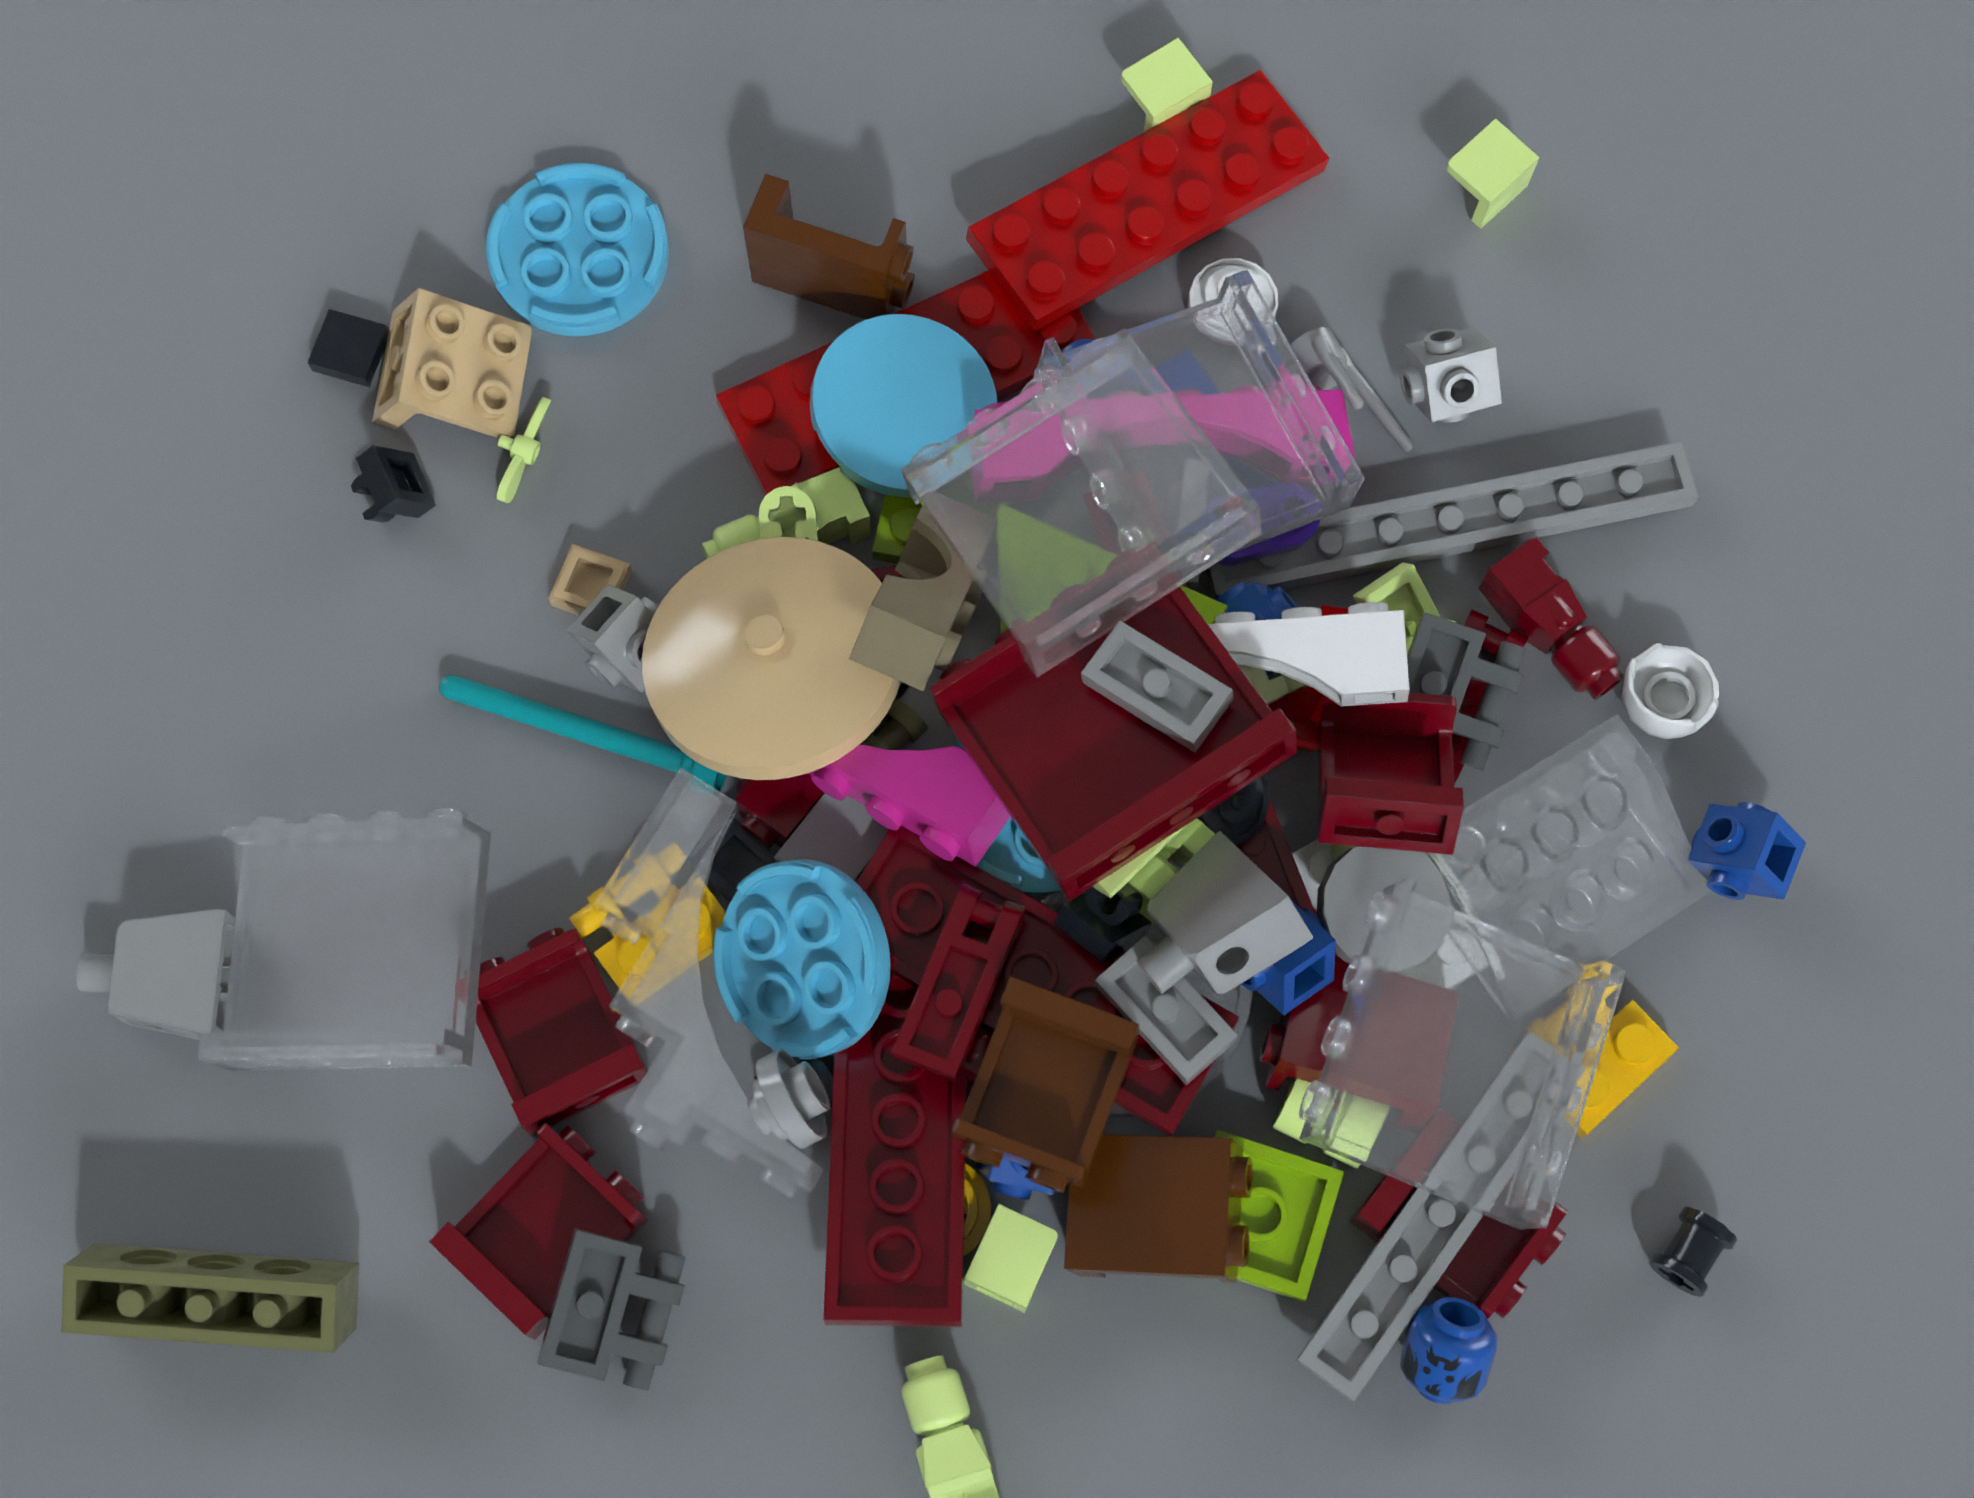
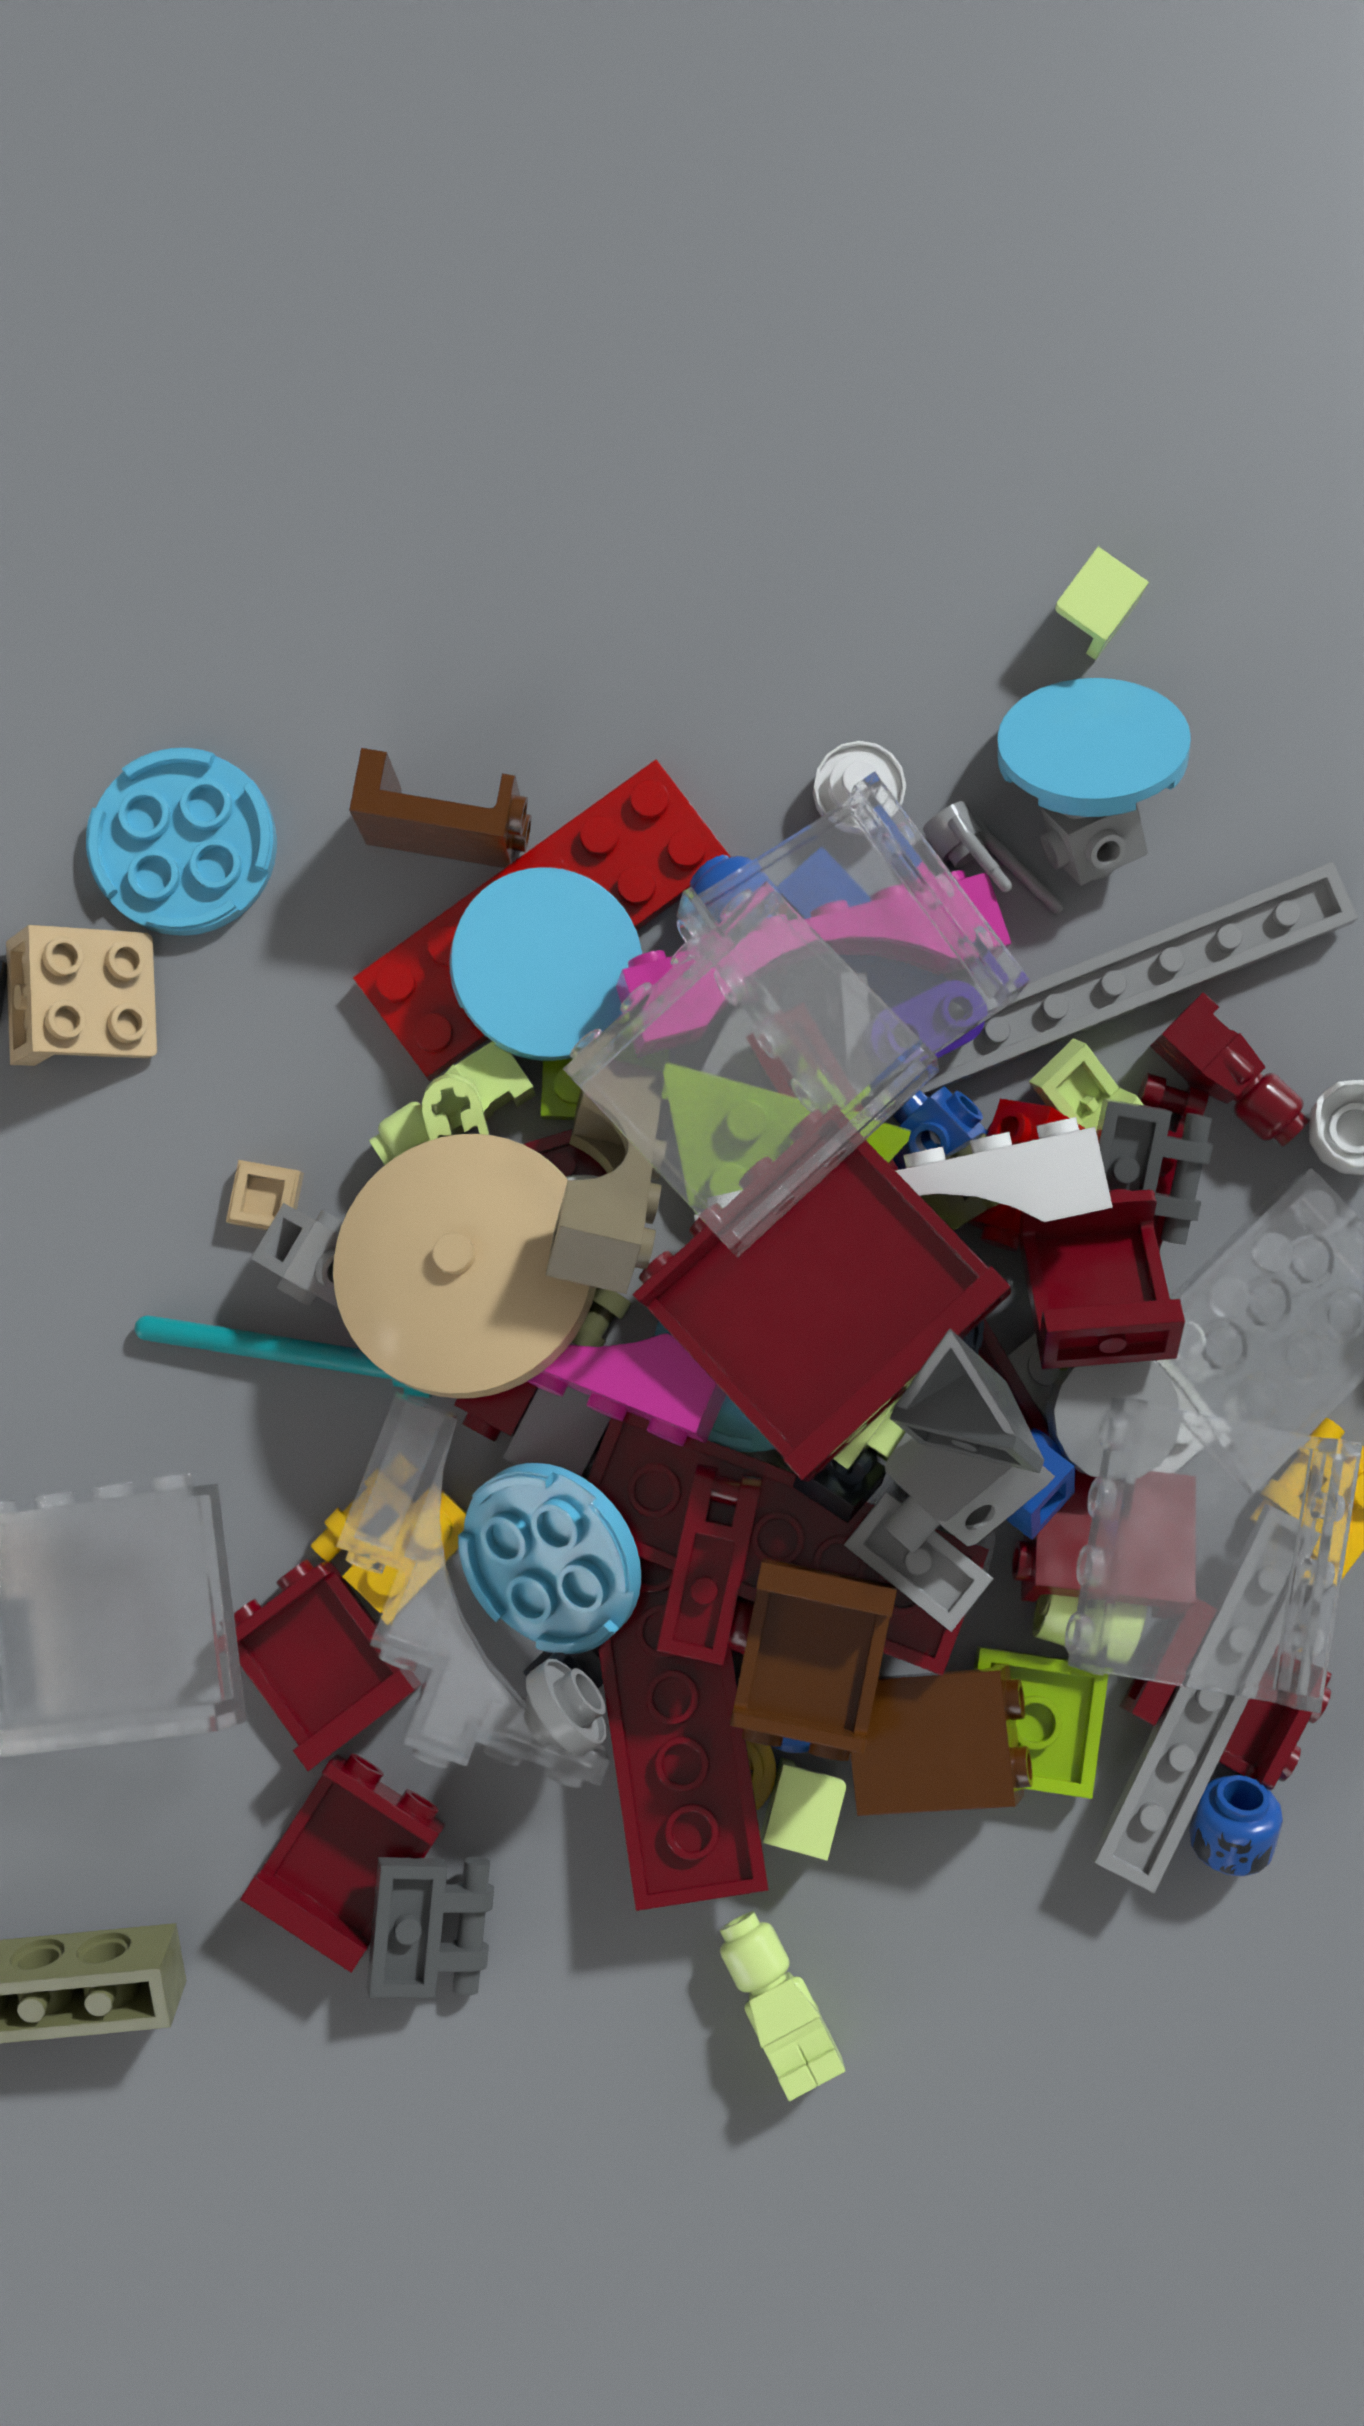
camera: 10 degrees left, 10 degrees up
(394, 484) = (45, 1129): black tile -> none
(523, 450) = (169, 1068): yellowish green piece -> none
(736, 859) = (470, 1461): black tile -> none
(1146, 200) = (754, 692): red plate -> none
(1157, 686) = (861, 1253): light grey plate -> none
(1166, 82) = (755, 566): yellowish green panel -> none
(1230, 844) = (966, 1409): none -> dark grey slope
(1463, 294) = (1093, 746): none -> medium azure tile

